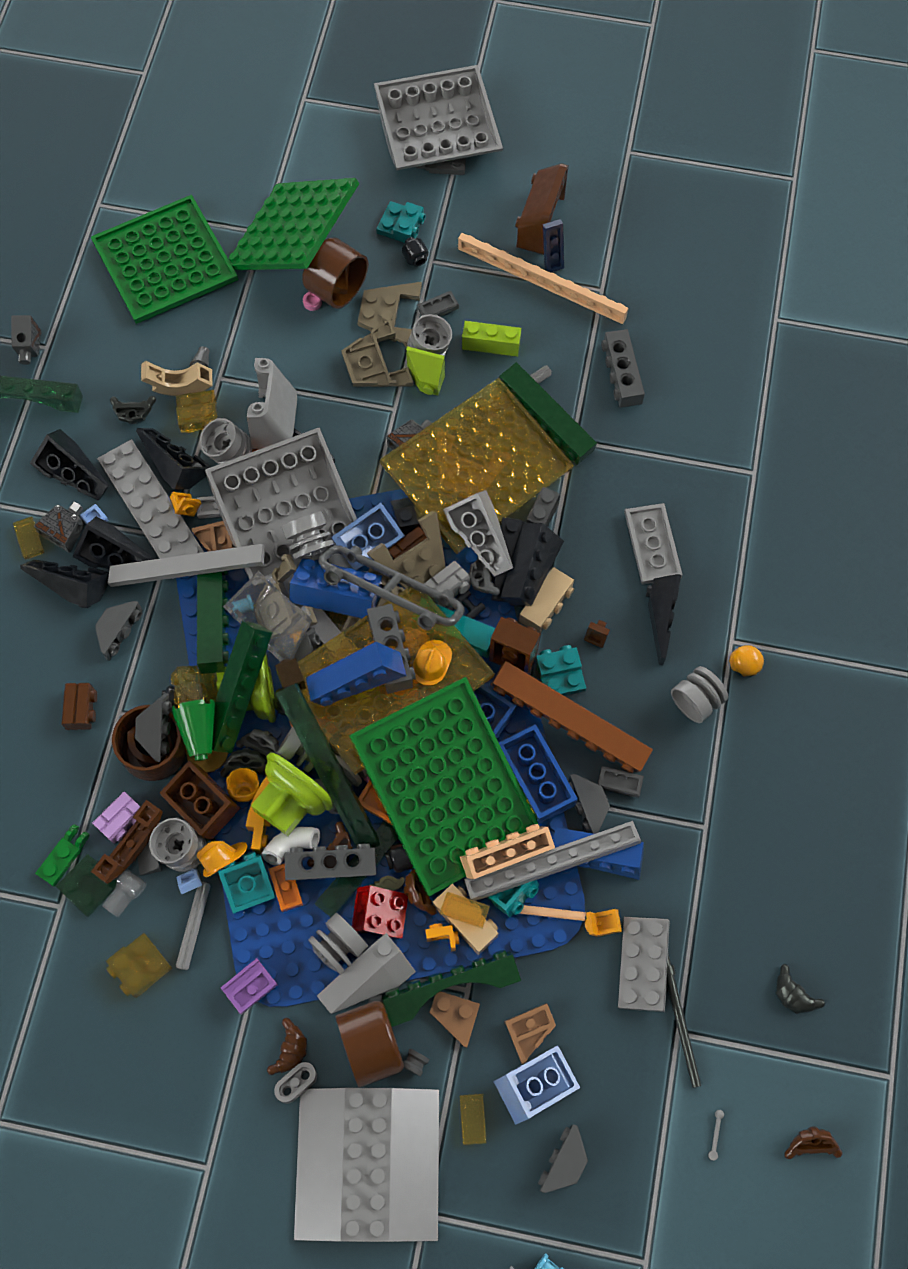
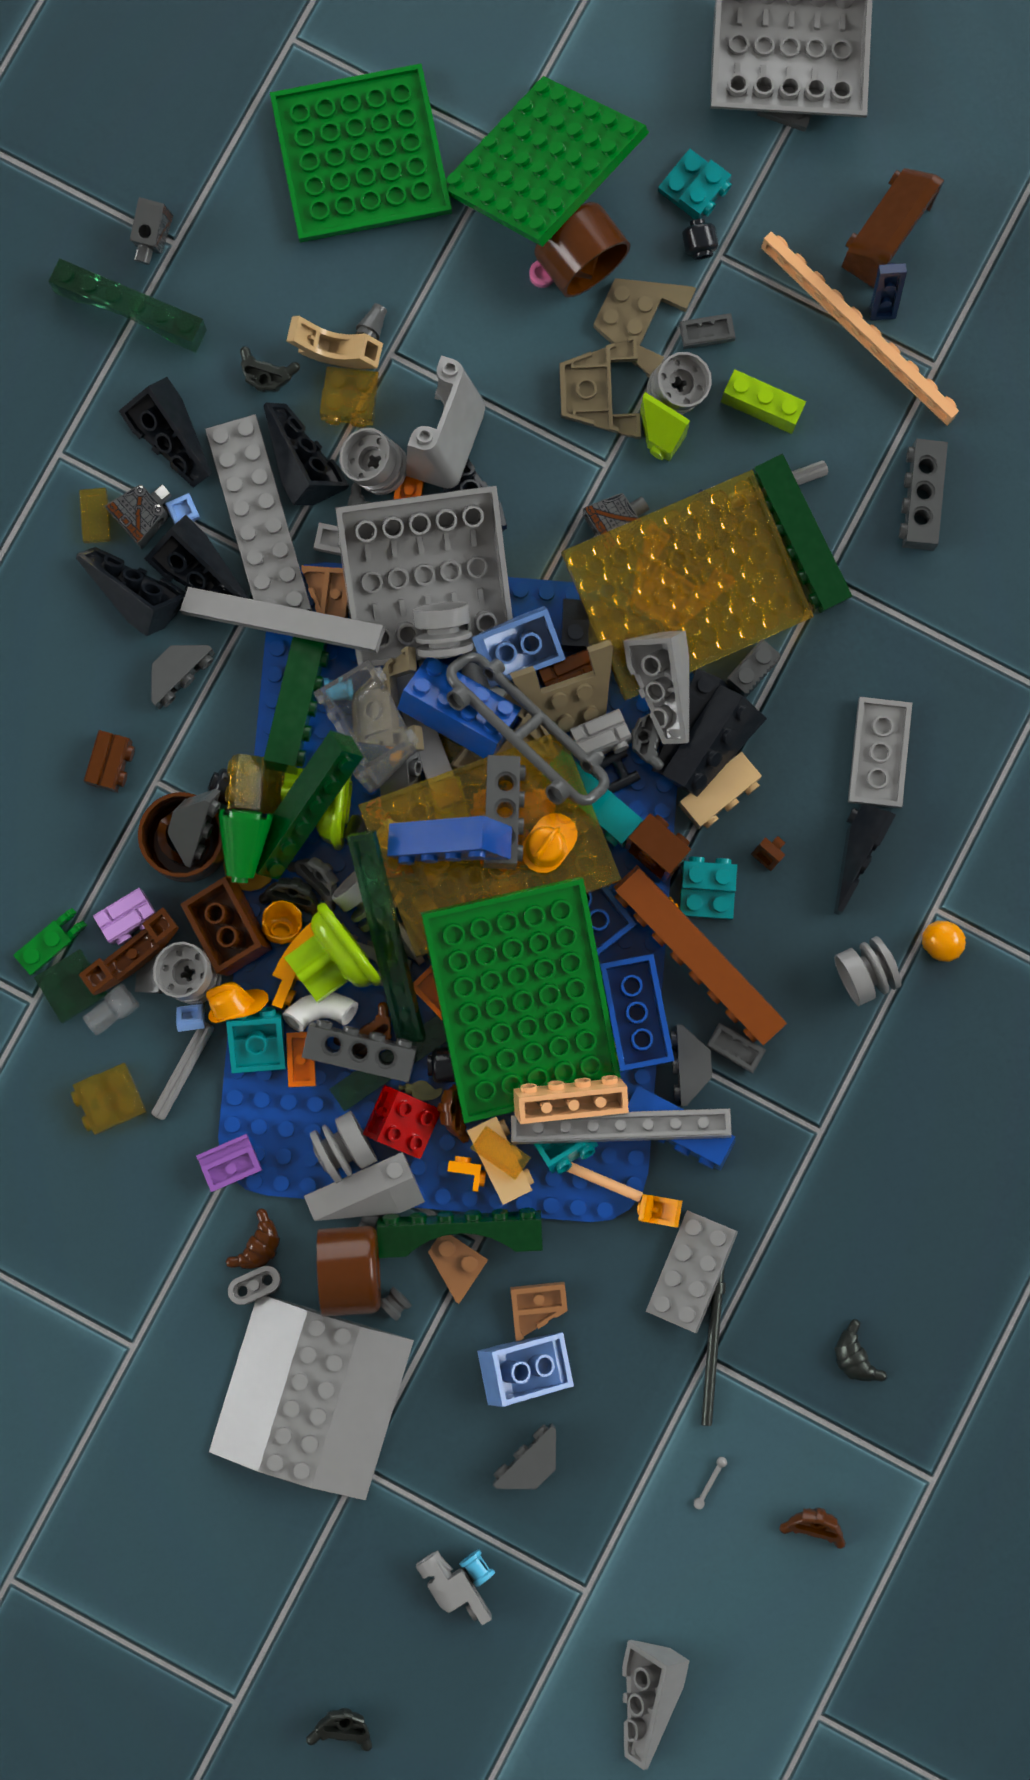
camera: 15 degrees right, 15 degrees up
(184, 504) = (300, 527): light orange bracket -> none
(290, 673) = (371, 813): dark brown brick -> none
(472, 1119) = (442, 1384): clear yellow tile -> none

